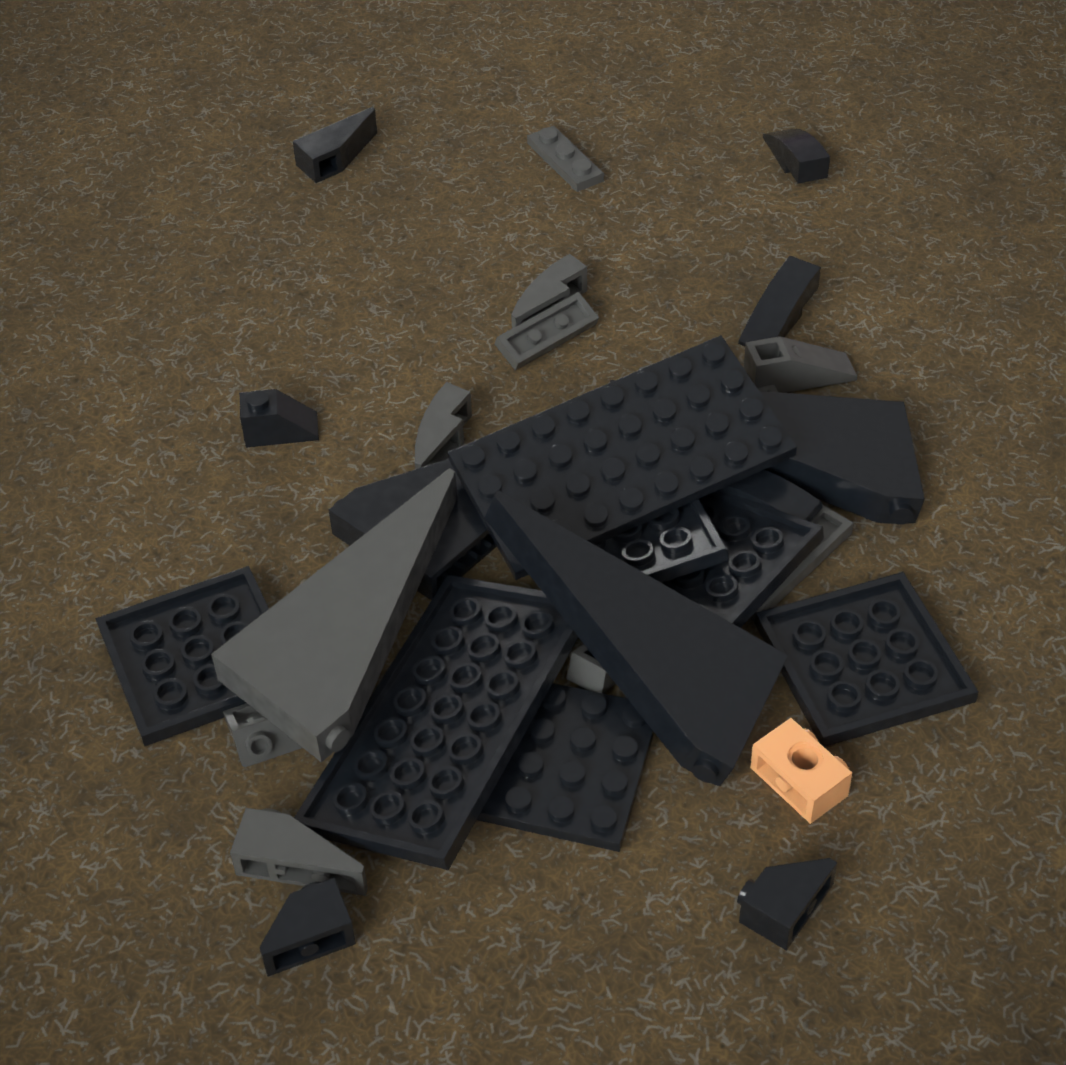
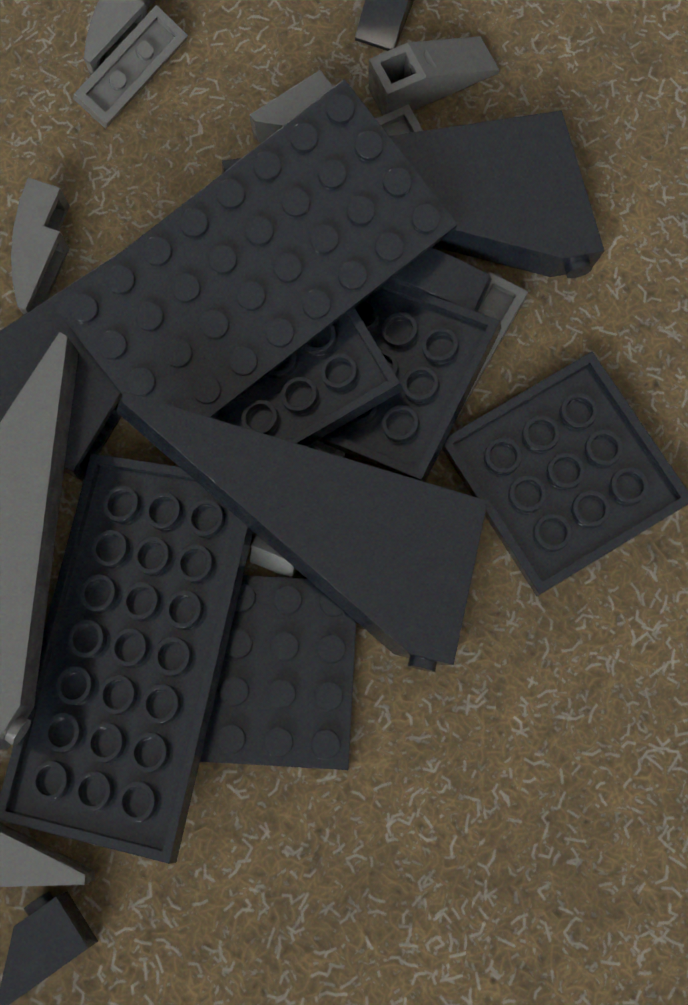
camera: 10 degrees left, 30 degrees up
(779, 763) = (495, 635): light nougat brick -> none
(785, 898) = (532, 807): black slope -> none

